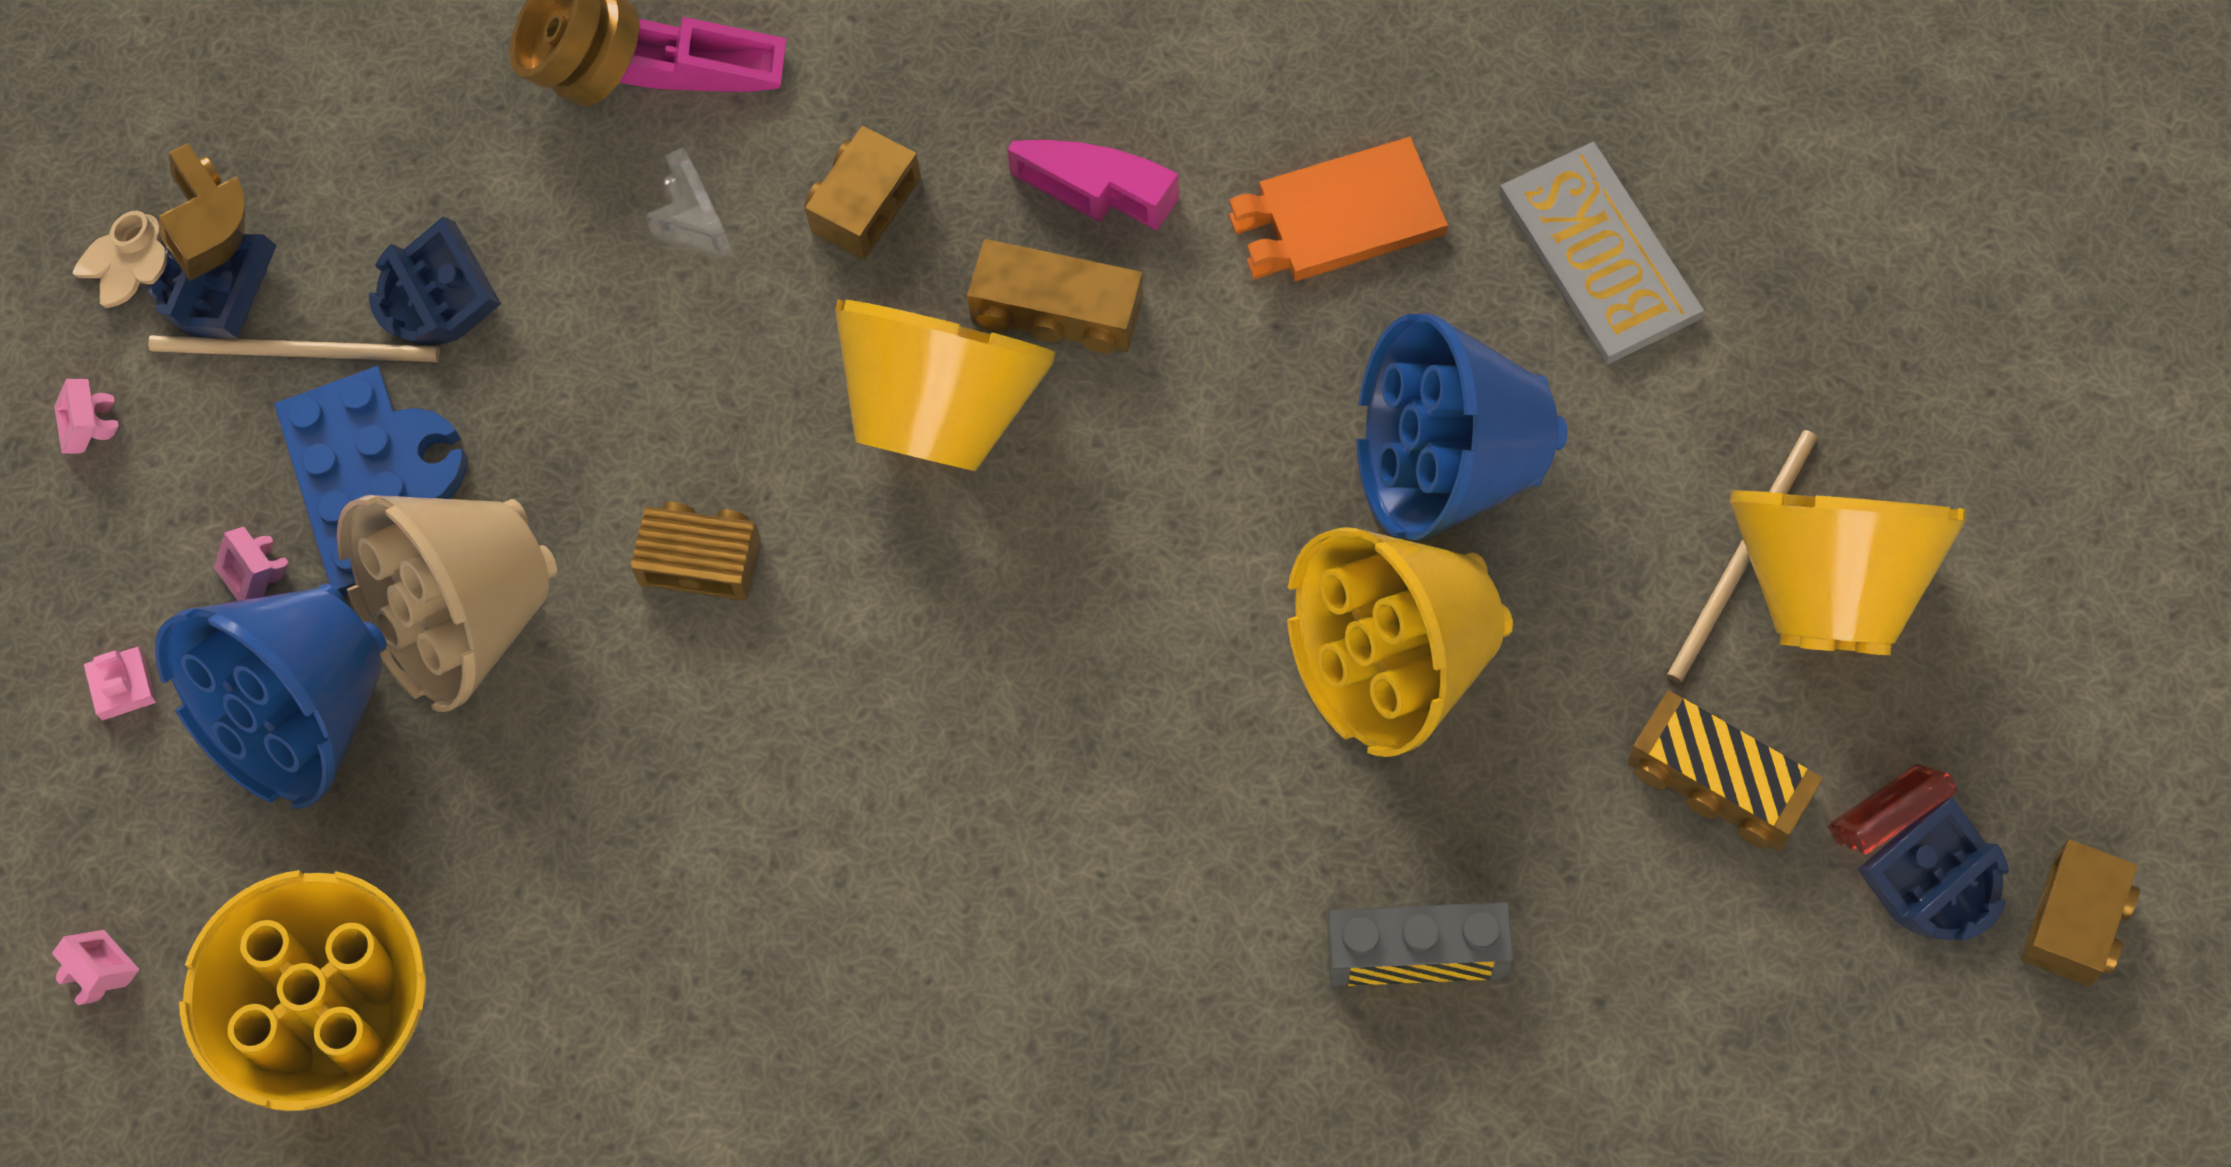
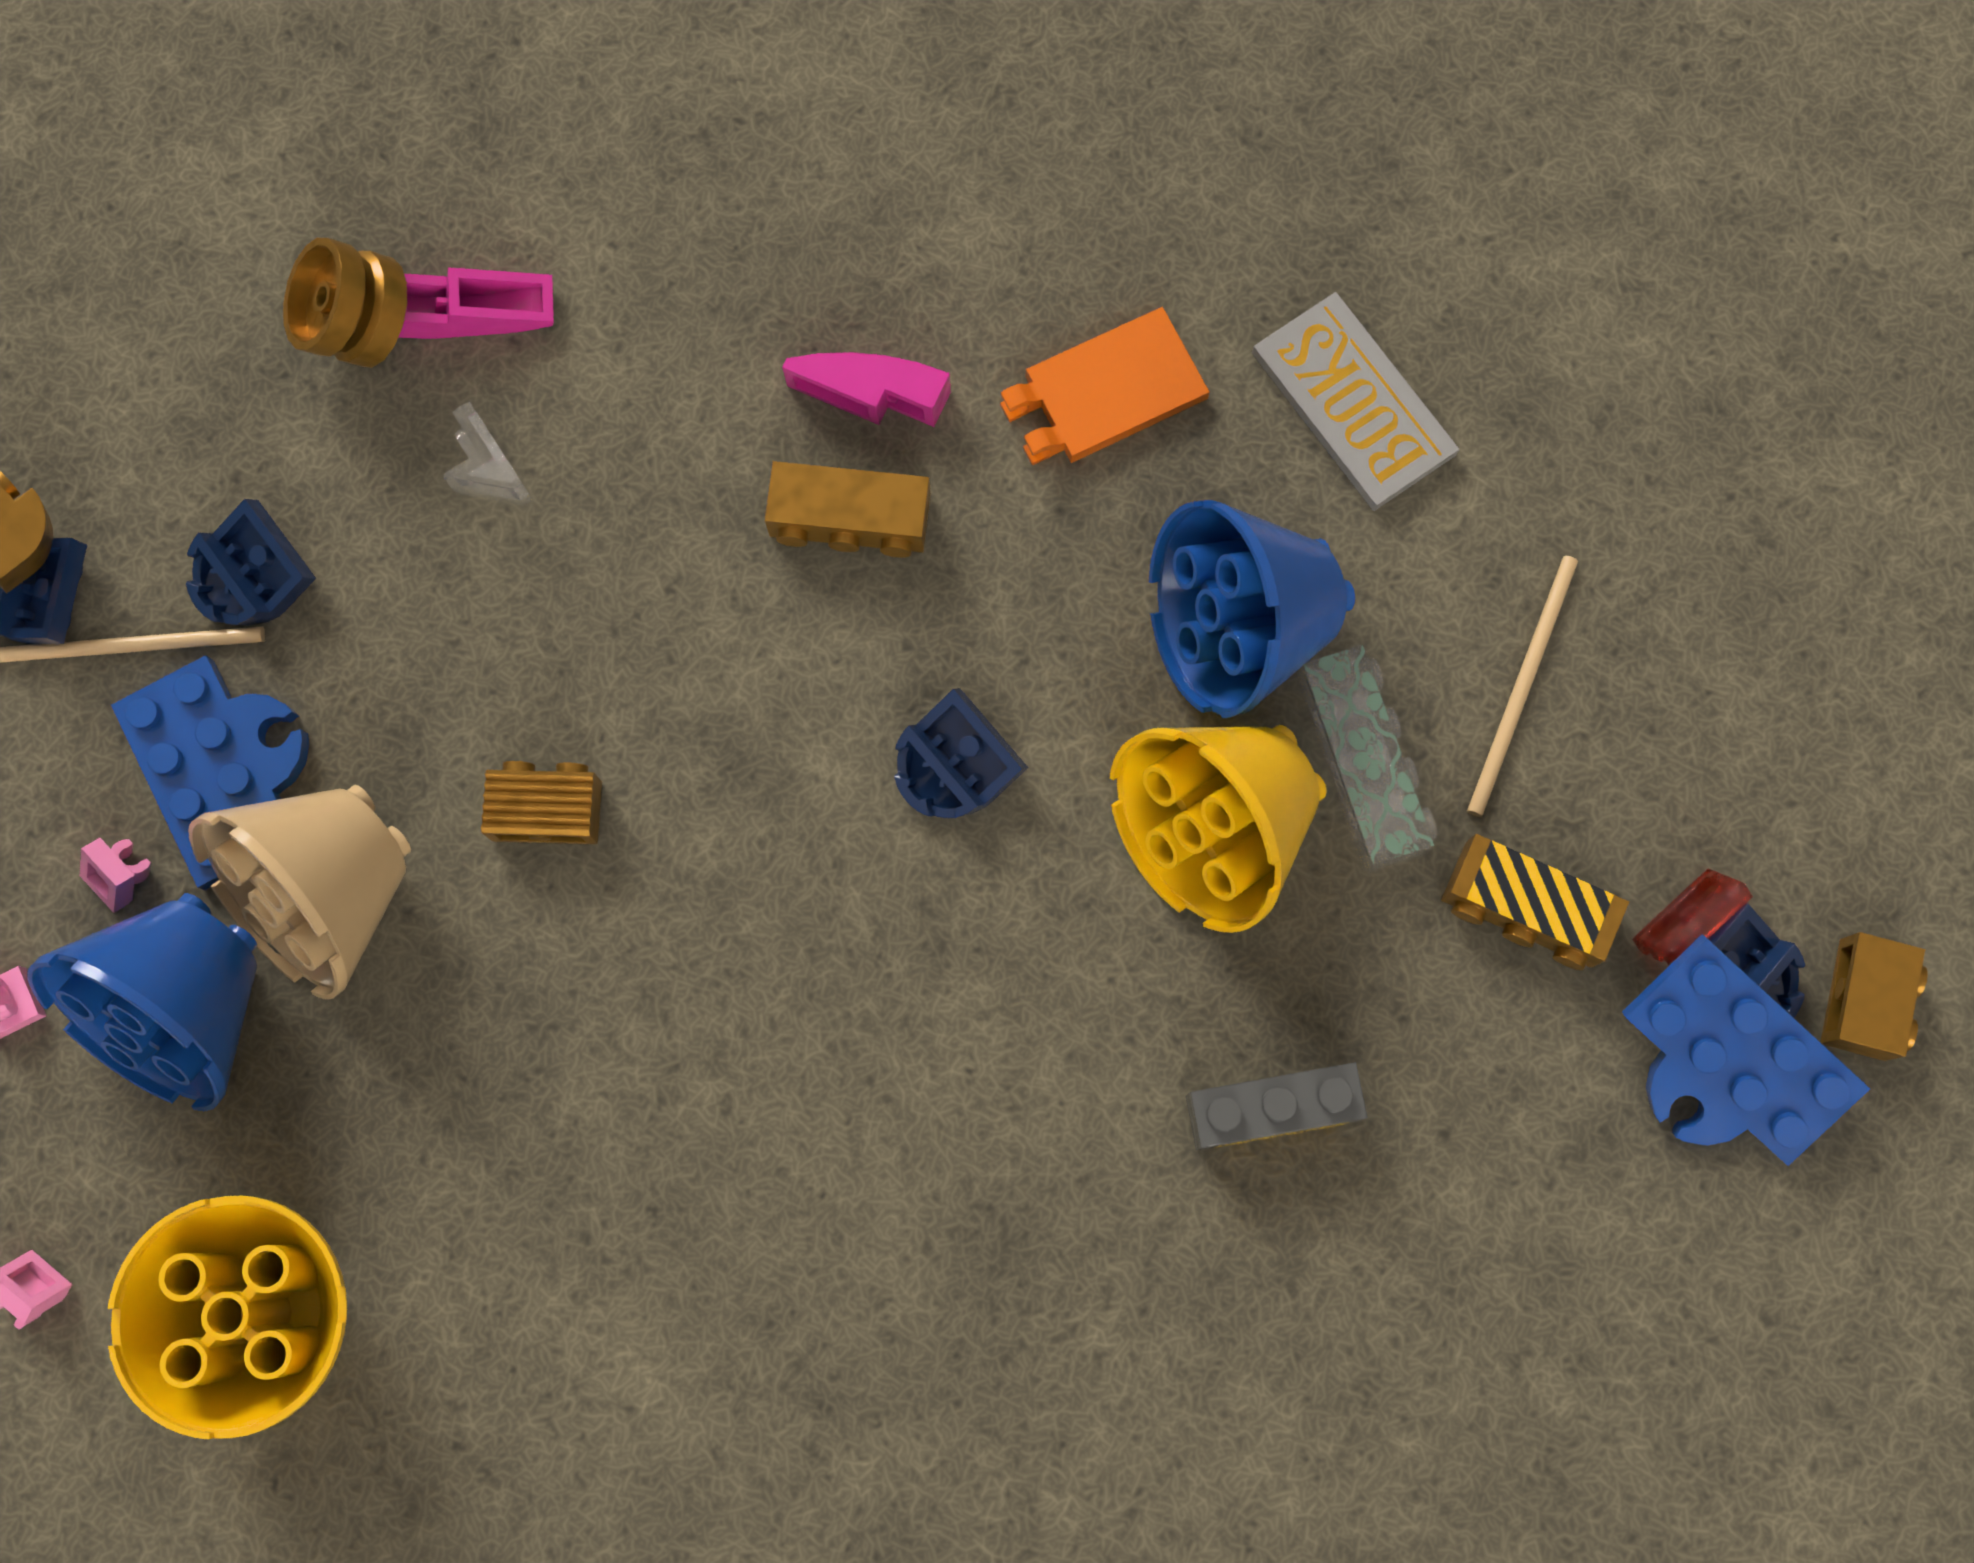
camera: 10 degrees left, 10 degrees up
(862, 192) = (648, 423): pearl gold brick -> none
(932, 384) = (745, 618): yellow cone -> none
(1129, 558) = (954, 760): none -> dark blue slope
(1563, 607) = (1366, 759): none -> clear brick
(1842, 566) = (1626, 693): yellow cone -> none
(1922, 953) = (1737, 1057): none -> blue plate

